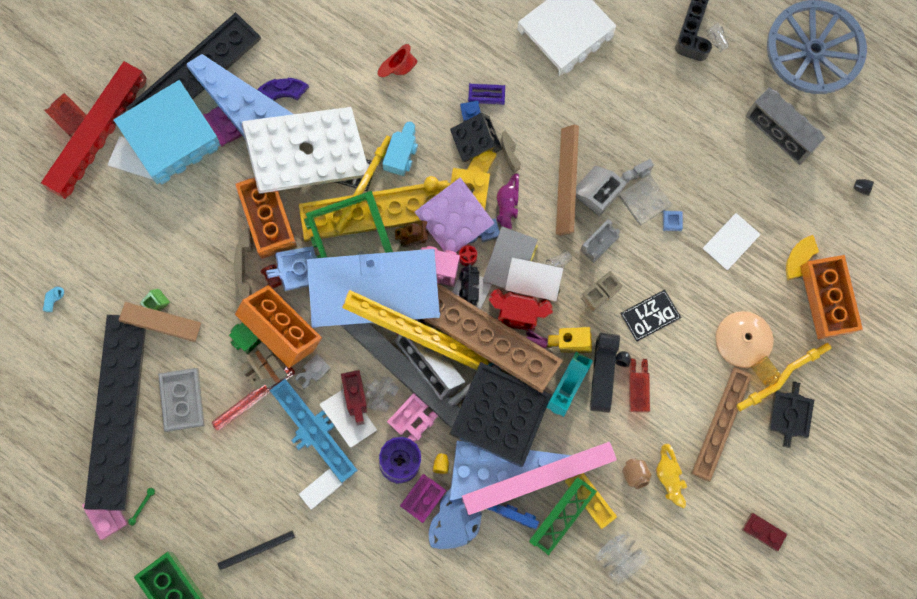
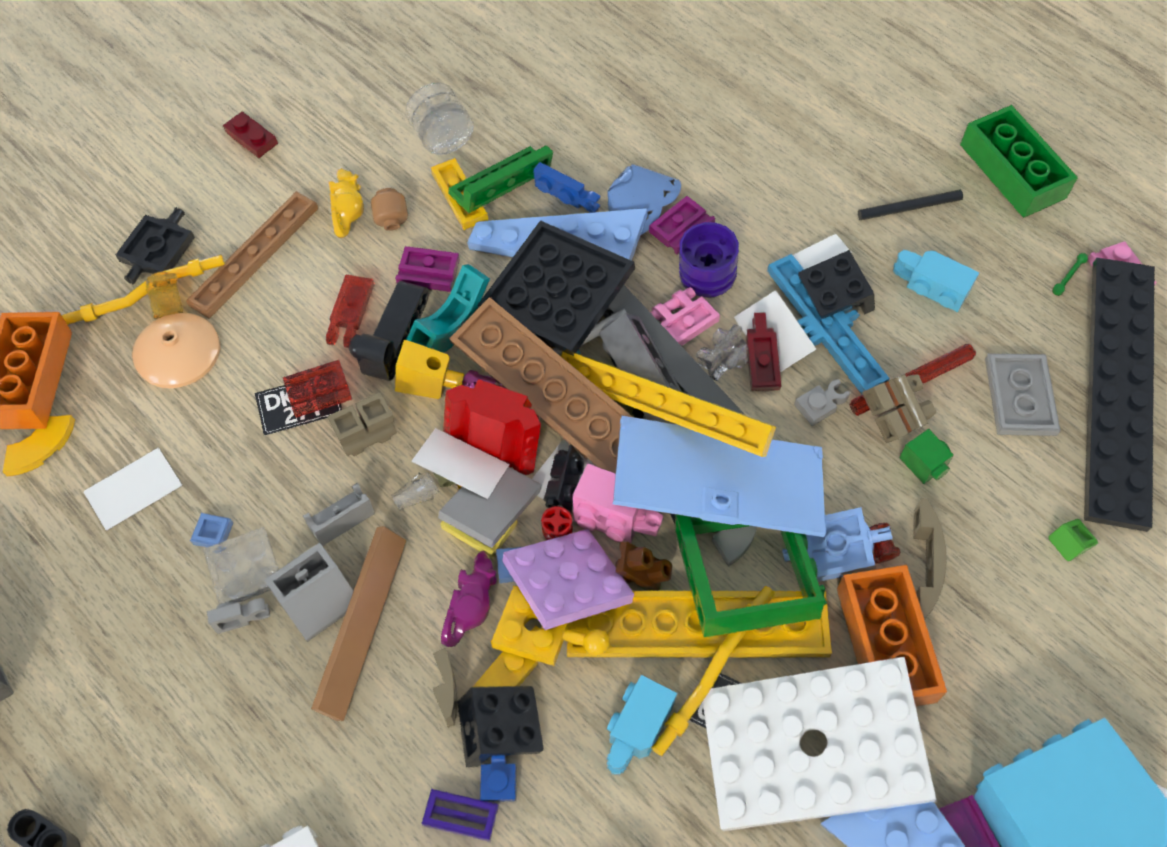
camera: 165 degrees left, 15 degrees down
(160, 321) = (1065, 498): medium nougat tile -> none
(237, 480) = (936, 277): none -> medium azure hinge
(278, 326) = (875, 454): orange brick -> none
(307, 456) = (837, 285): none -> black bracket
(441, 464) = (650, 259): yellow hose -> none
(538, 478) = (520, 213): bright pink tile -> none
(595, 428) = (428, 268): none -> magenta plate
(640, 321) = (317, 388): none -> clear red plate

